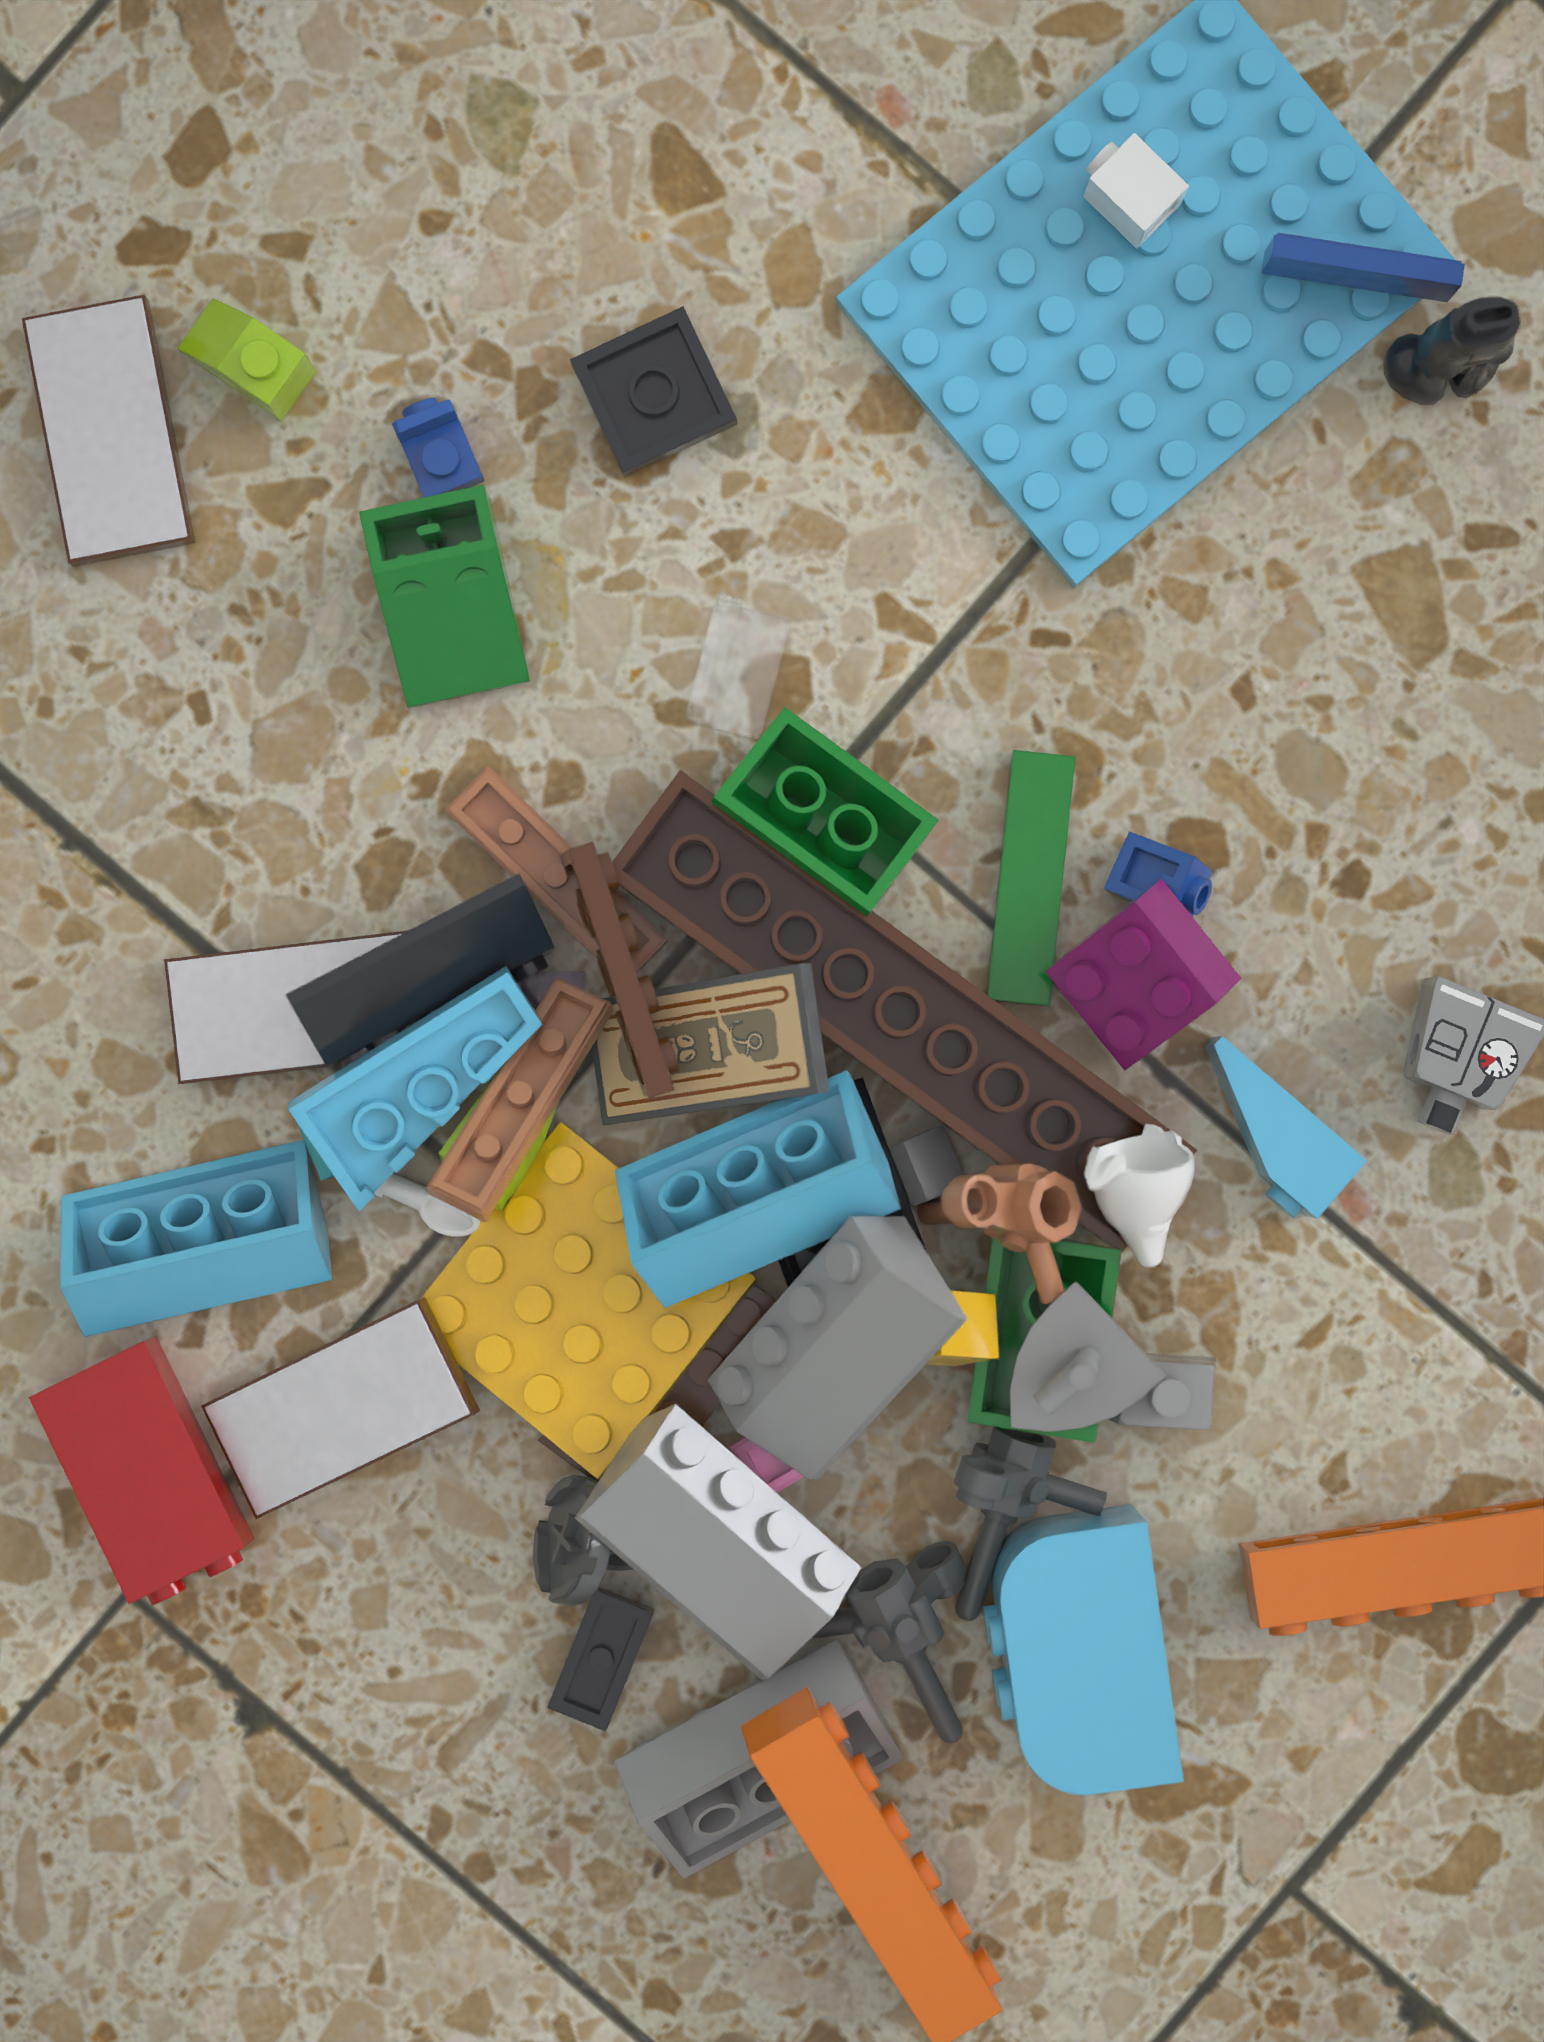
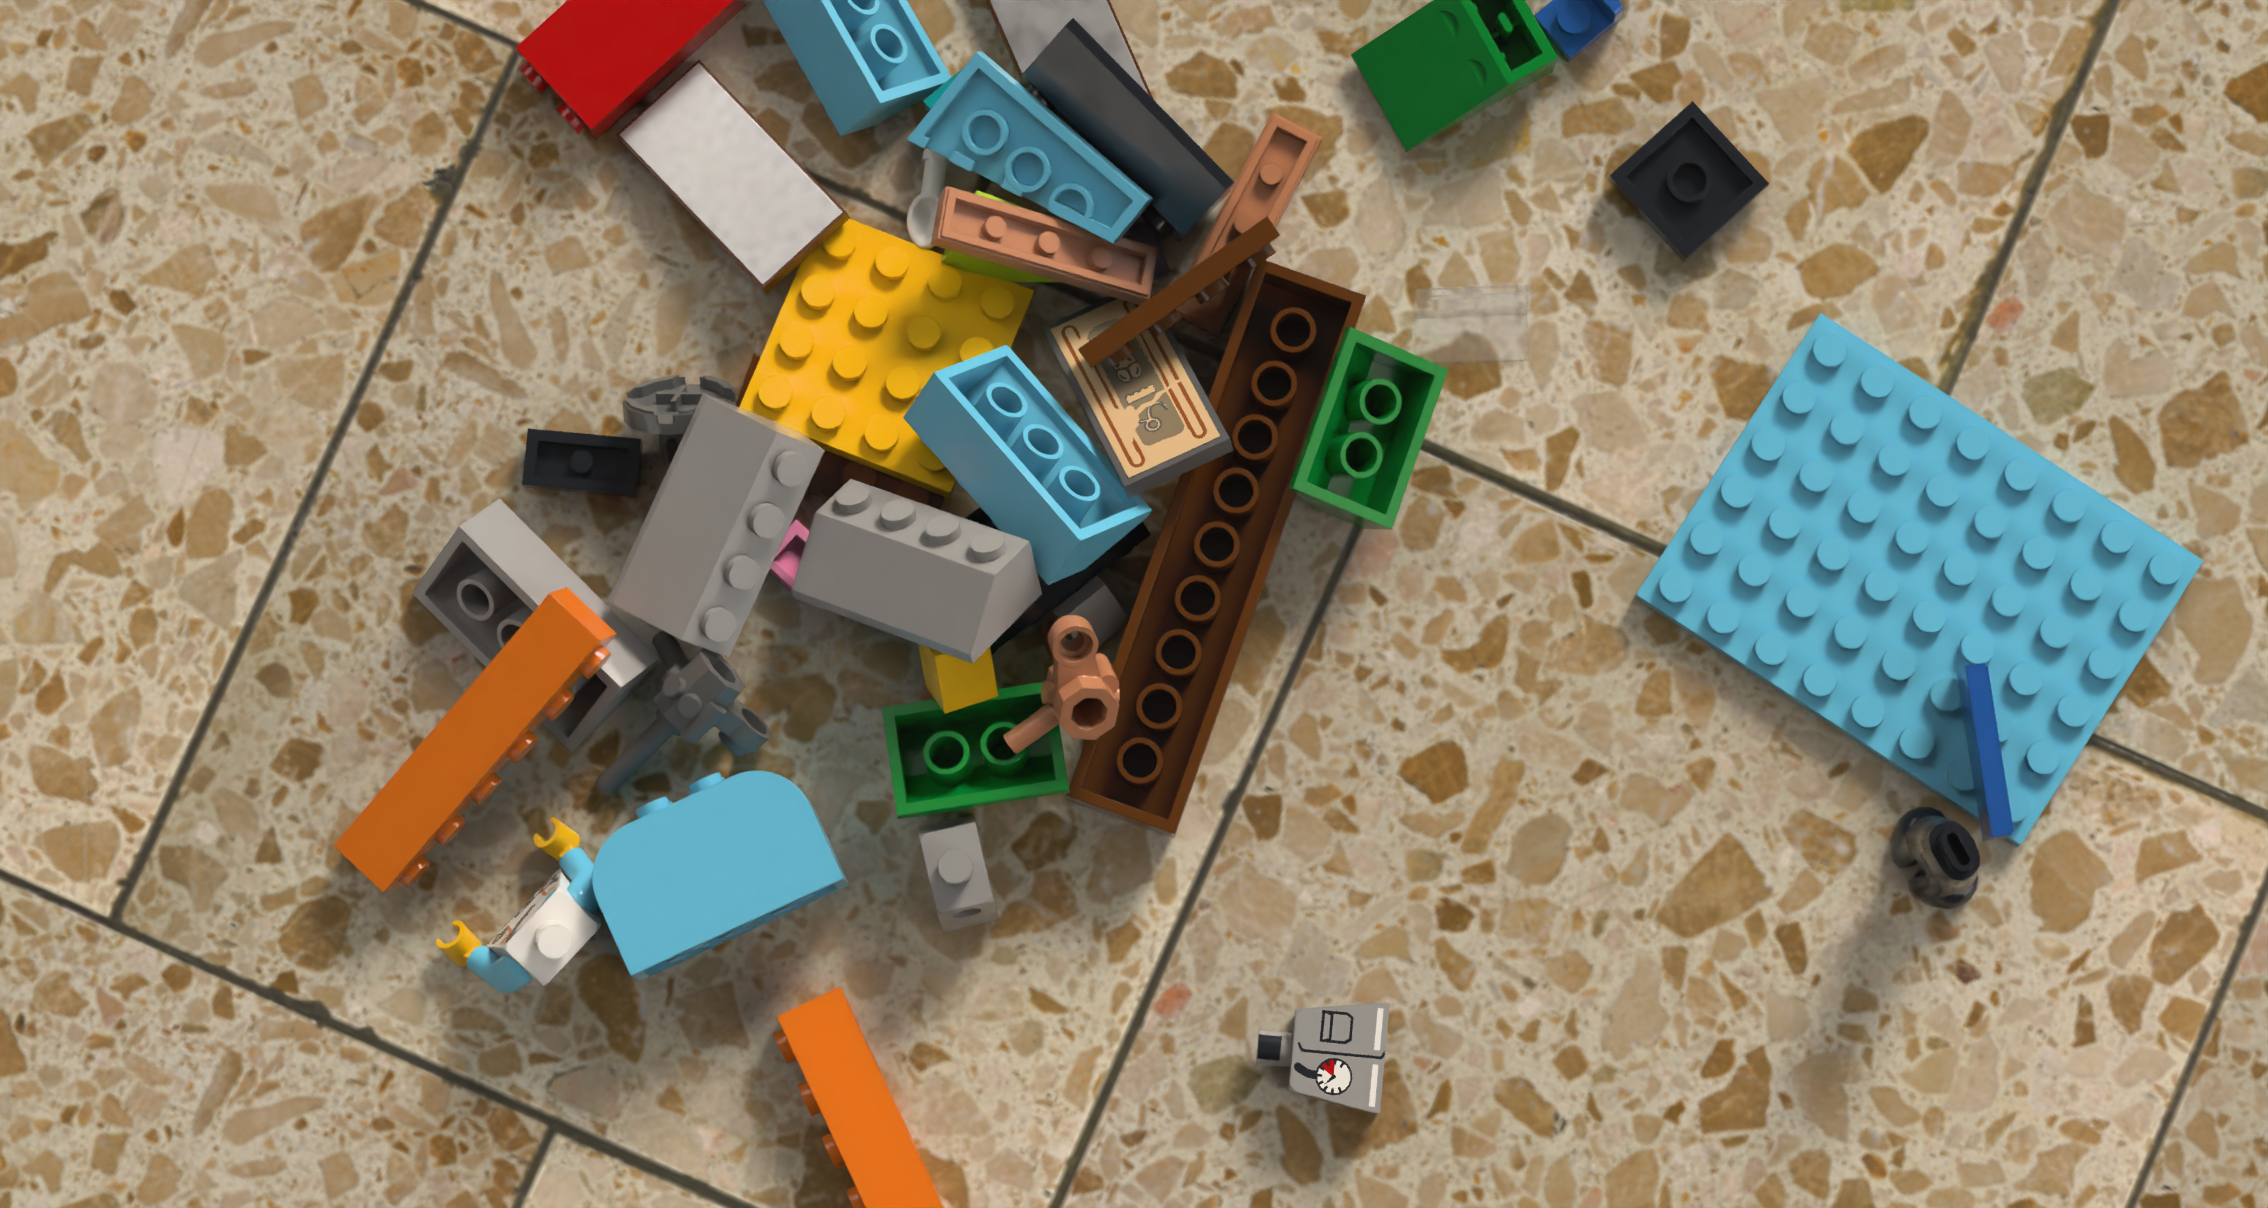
camera: 75 degrees right, 5 degrees down
(1007, 1484) = (838, 766): dark grey piece -> none
(1030, 877) = (1368, 632): green tile -> none
(1077, 1367) = (957, 780): light grey shield -> none
(1093, 1848) = (544, 930): none -> torso
(1133, 188) = (1989, 534): white brick -> none
(1141, 1187) = (1126, 786): white hat -> none
(1143, 975) = (1312, 745): magenta brick -> none
(1146, 862) = (1401, 744): blue bracket -> none
(1285, 1140) = (1204, 921): medium azure slope -> none

